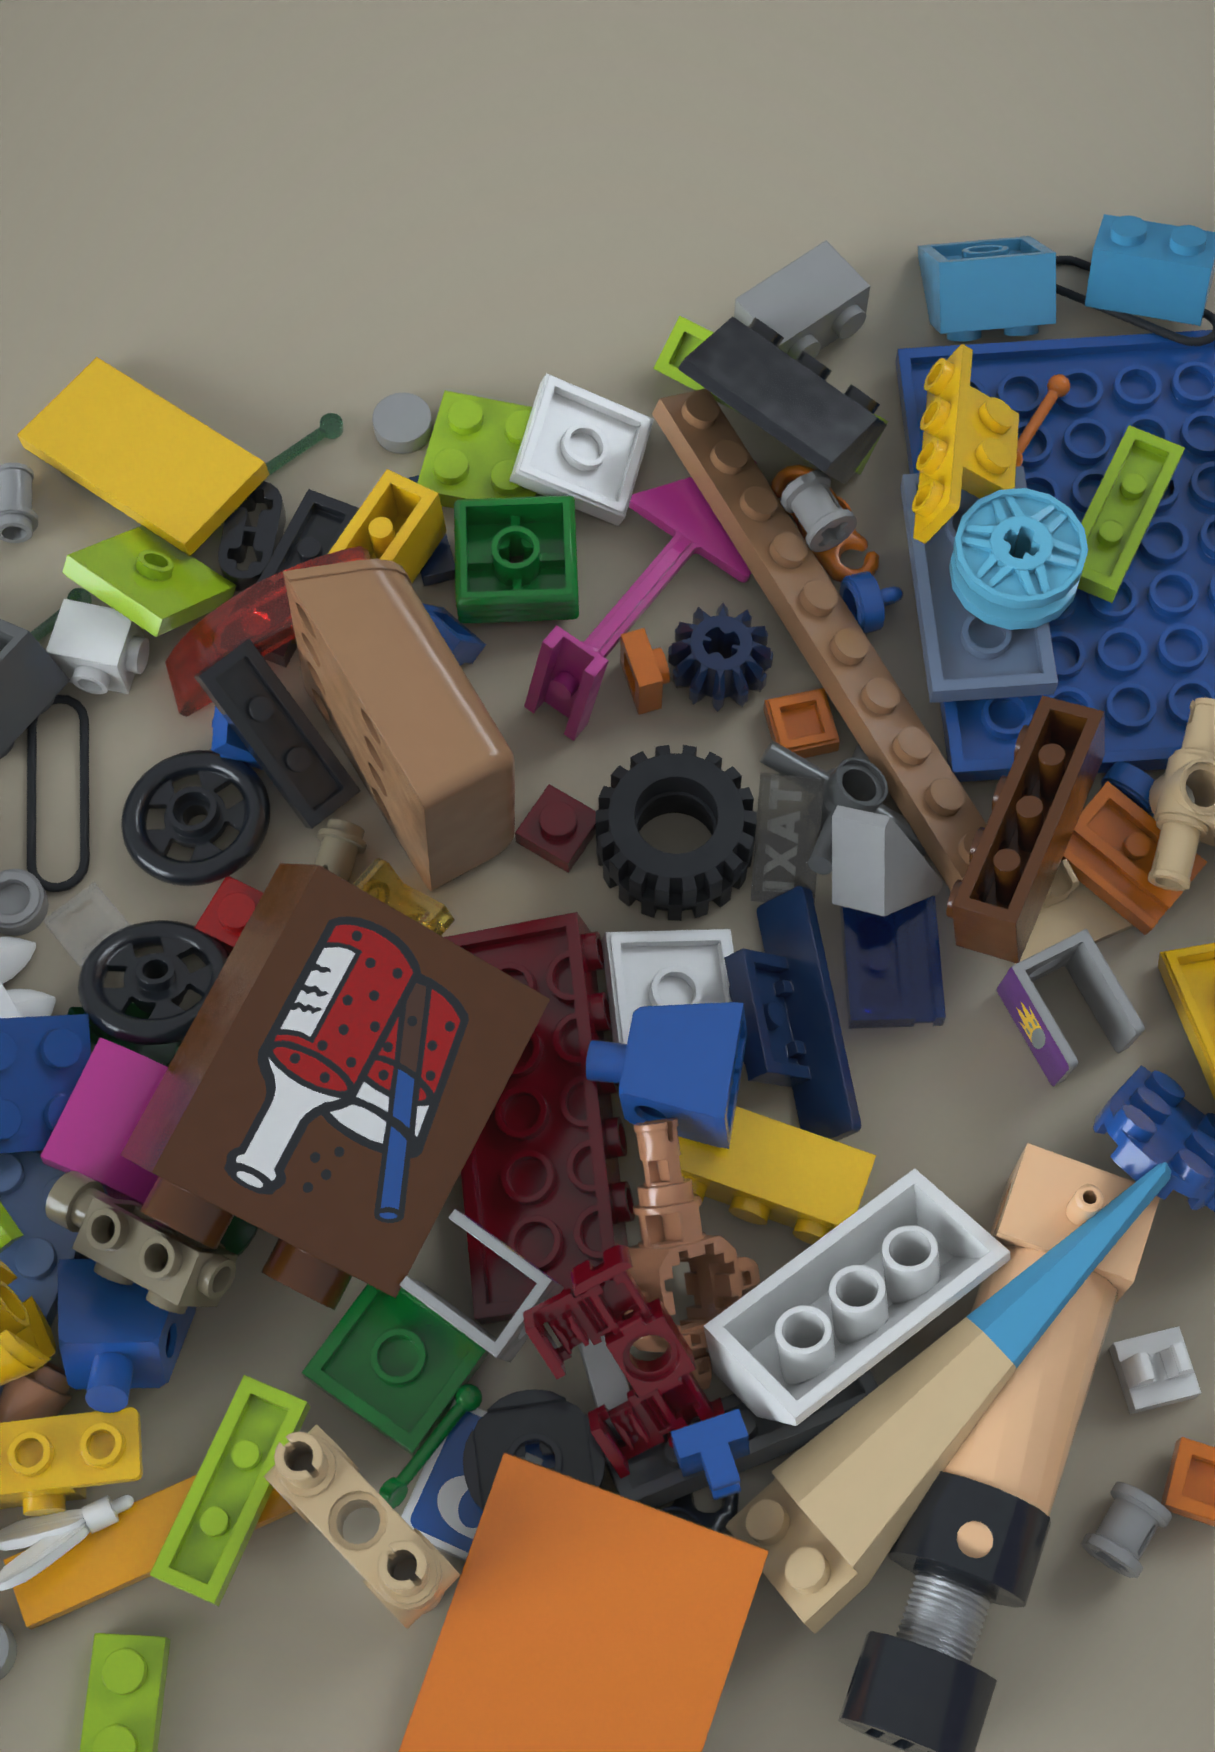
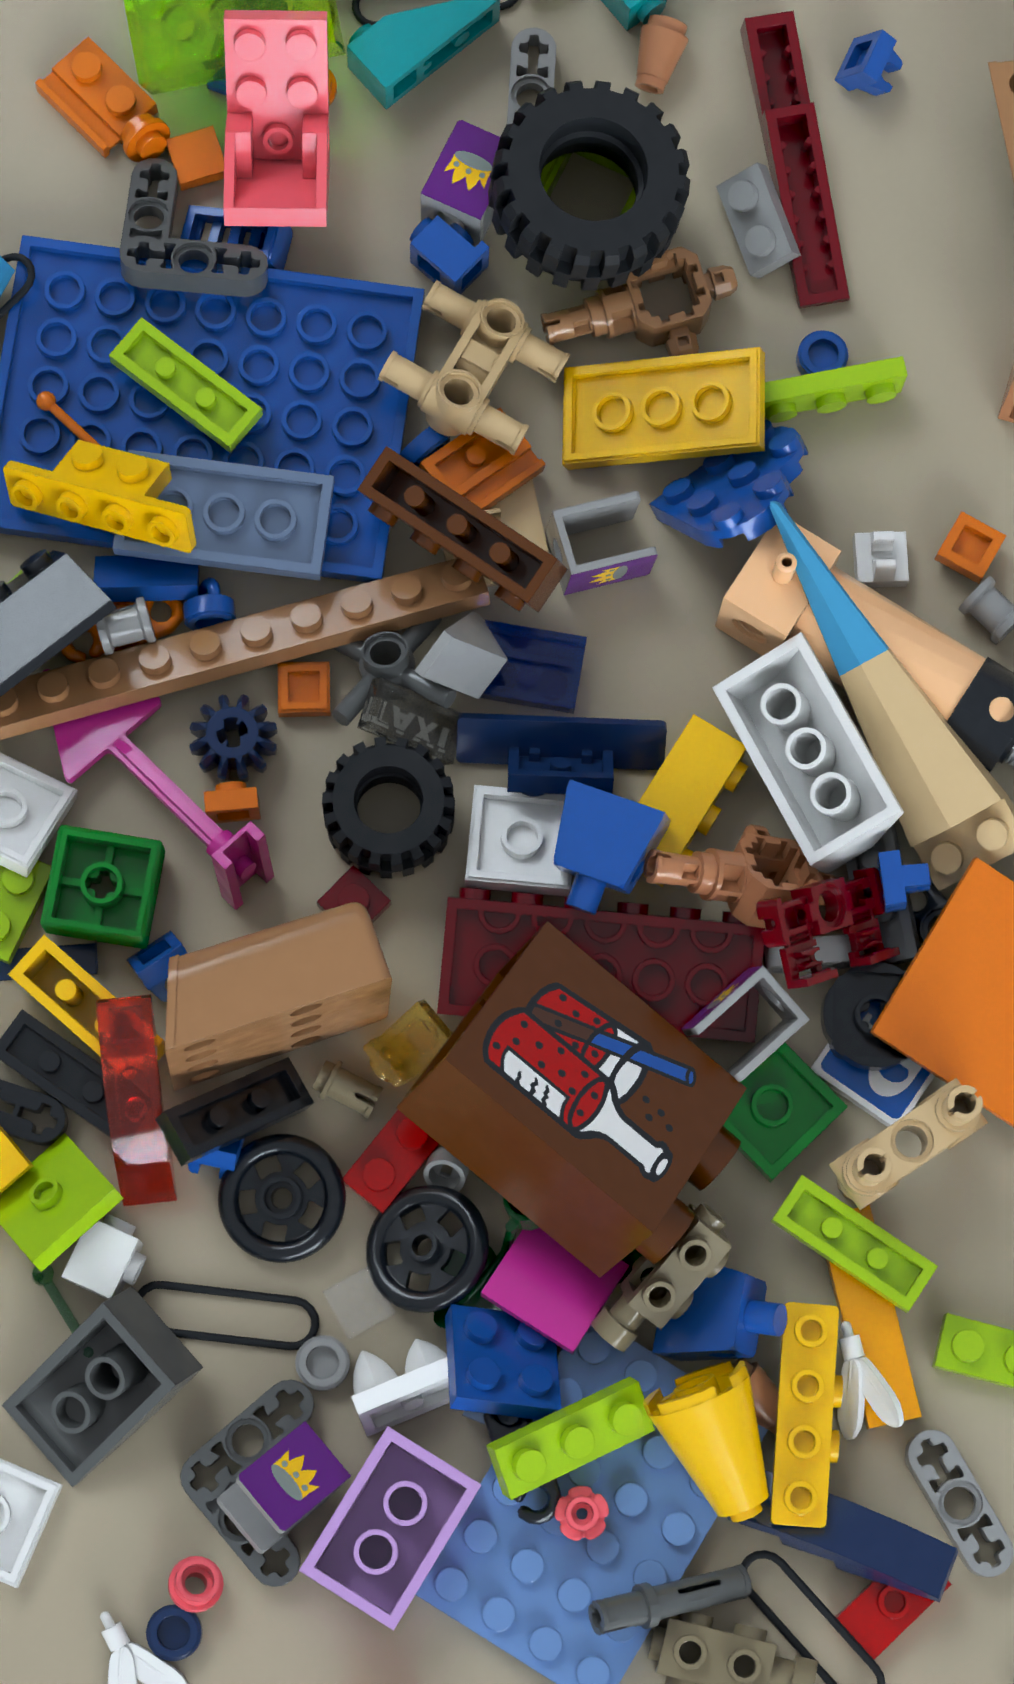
camera: 85 degrees left, 10 degrees up
(395, 1489) = (815, 1058): green hinge -> none
(881, 528) = (156, 580): none -> blue tile
(1018, 558) = (226, 447): medium azure wheel -> none

